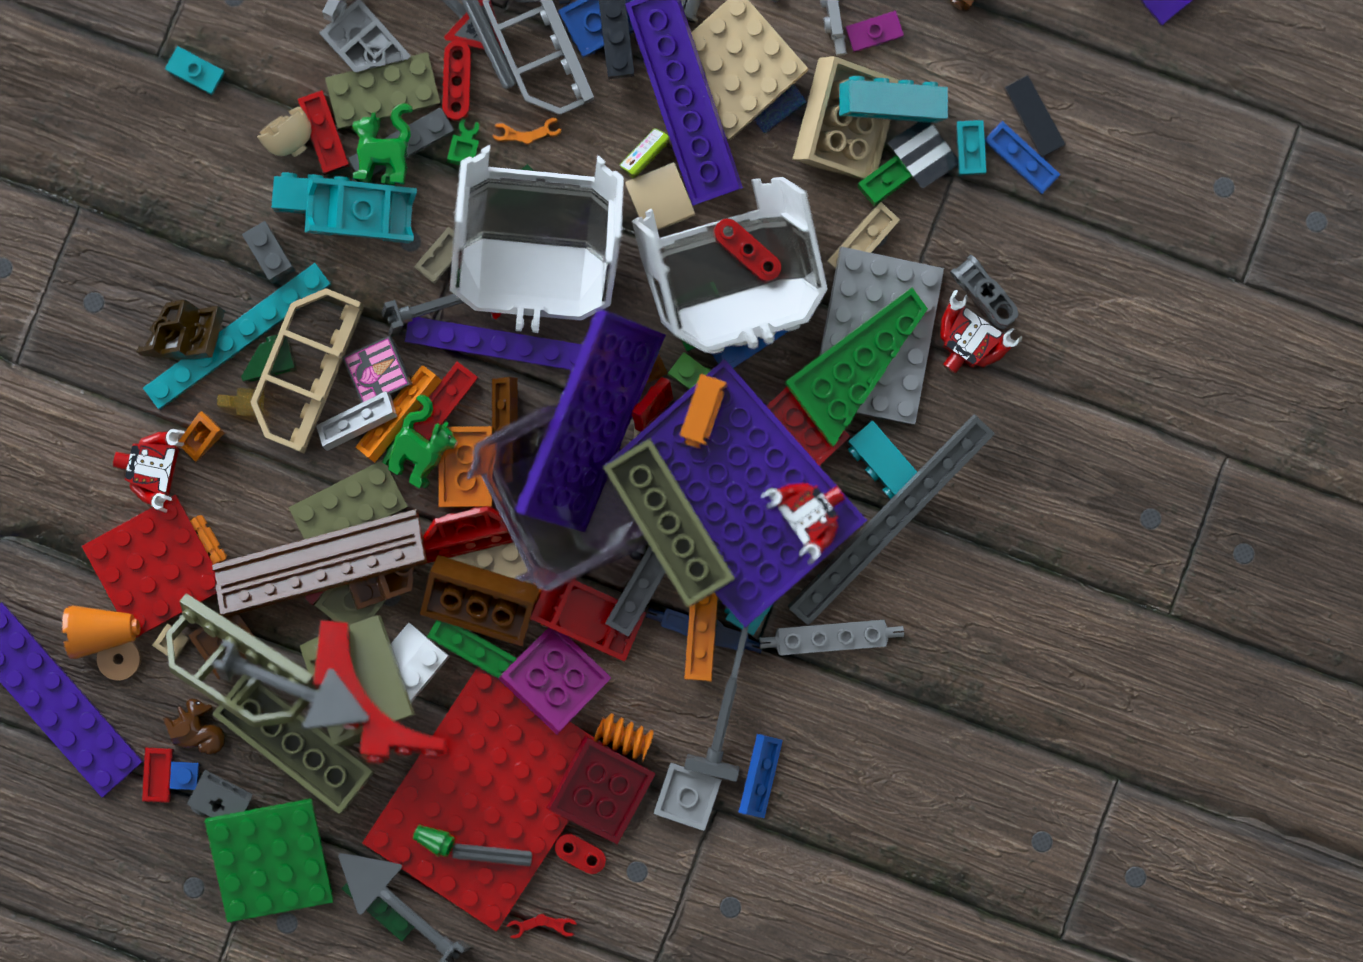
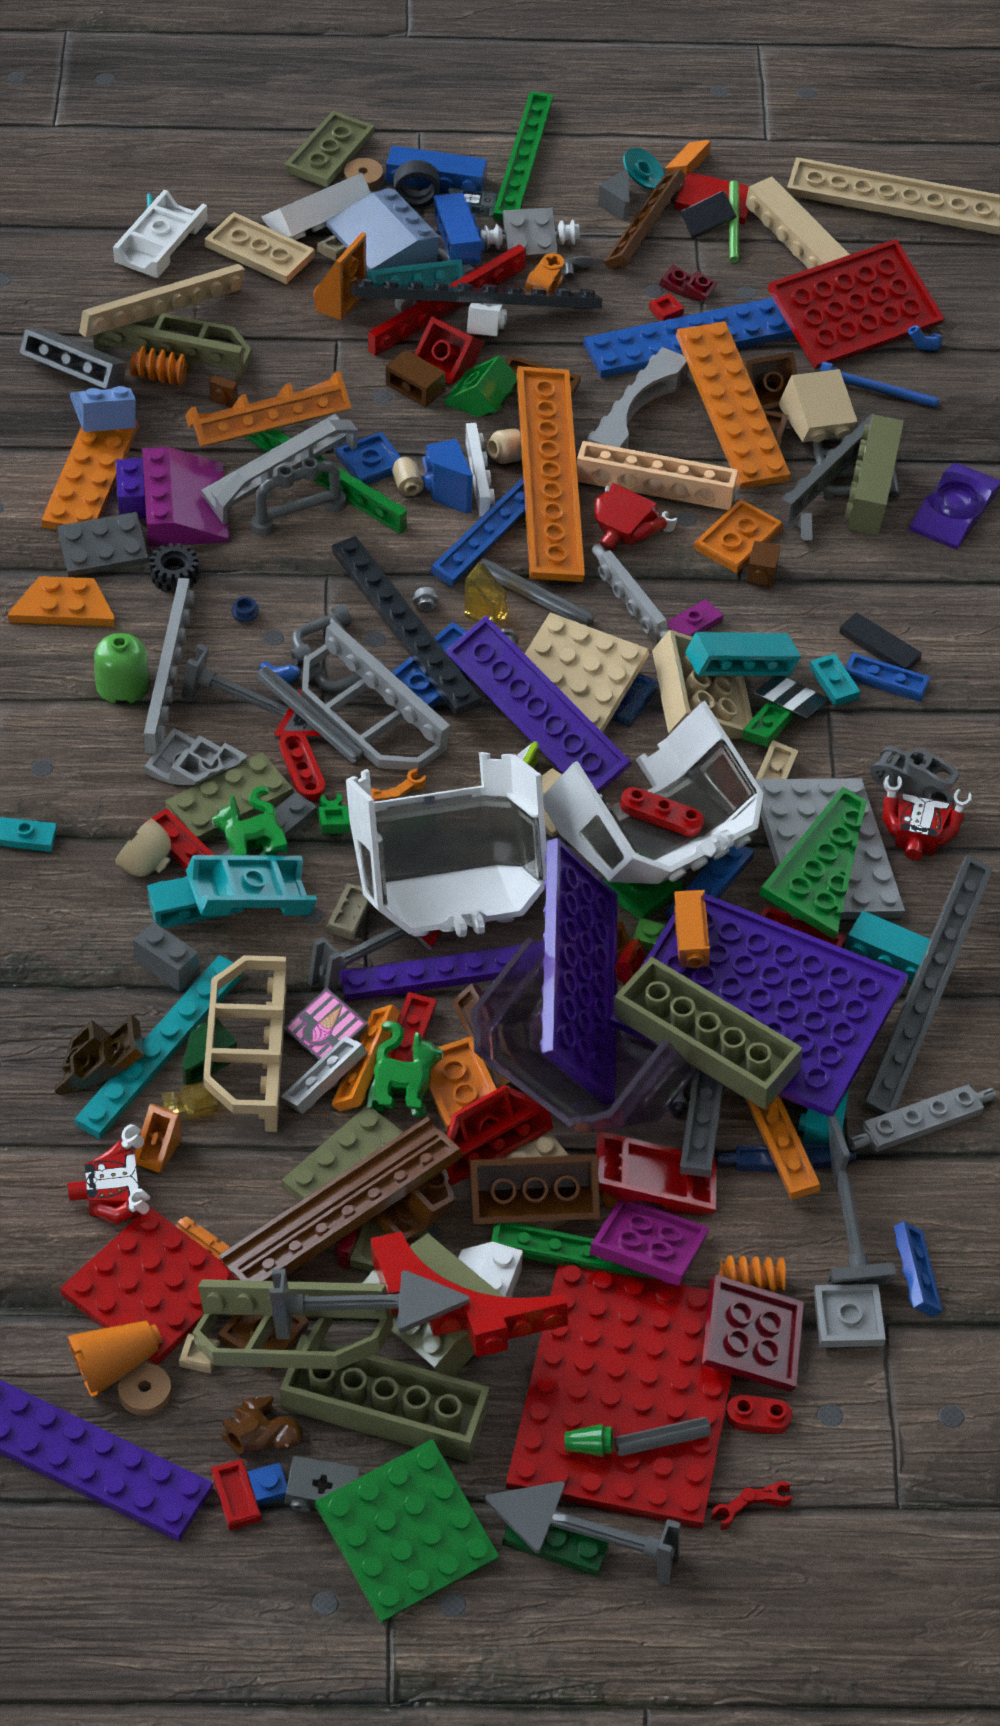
camera: 25 degrees left, 35 degrees down
(809, 514) = (845, 978): torso -> none

